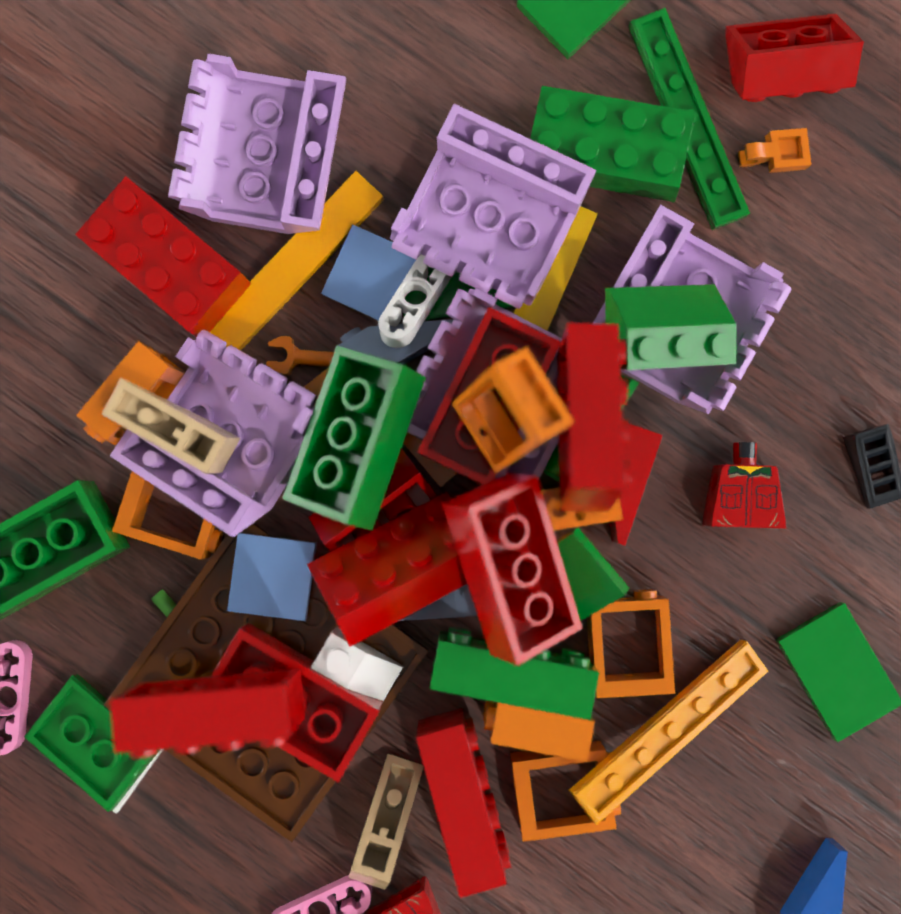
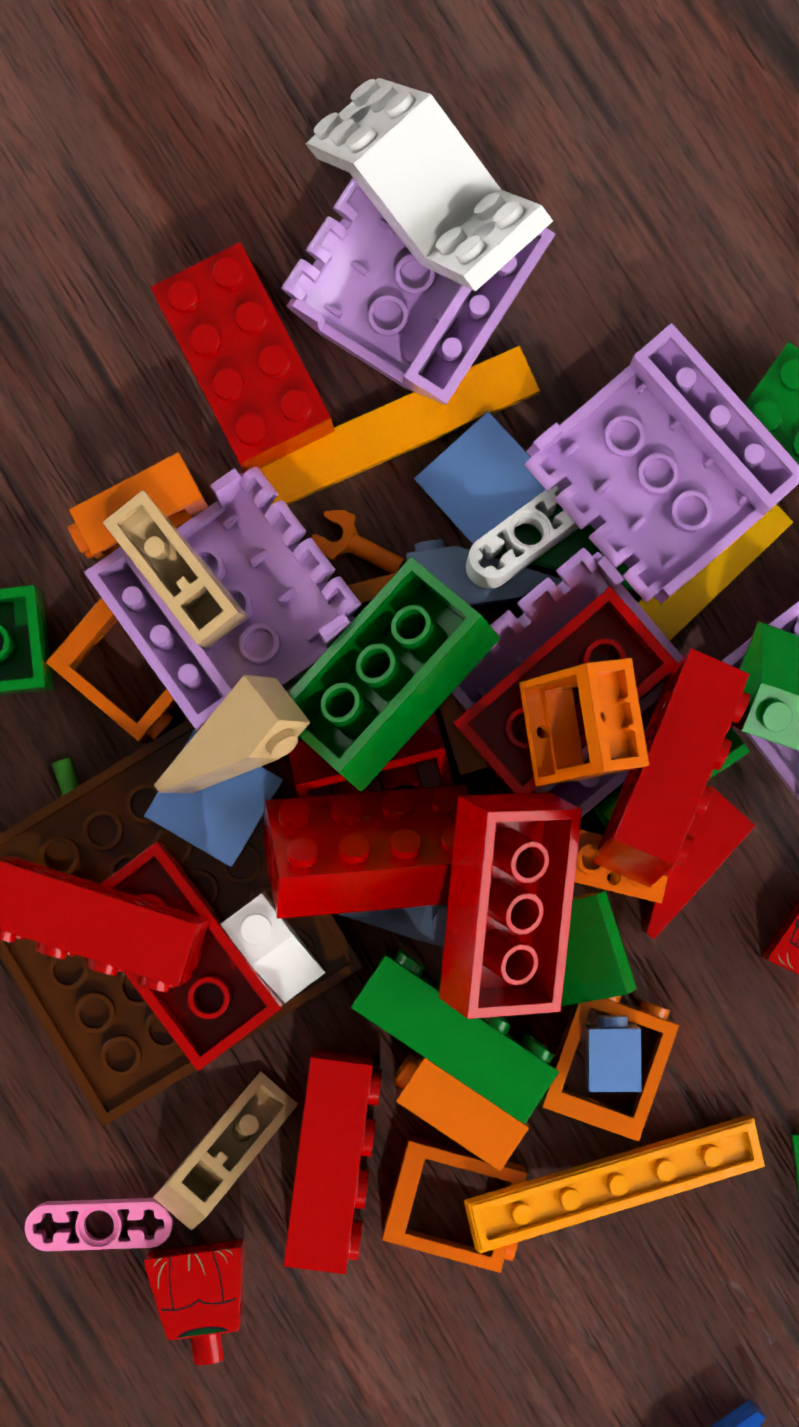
camera: 20 degrees right, 0 degrees up
(239, 75) = (427, 182): none -> white bracket
(267, 523) = (245, 732): none -> tan slope
(632, 642) = (613, 1055): none -> medium blue brick

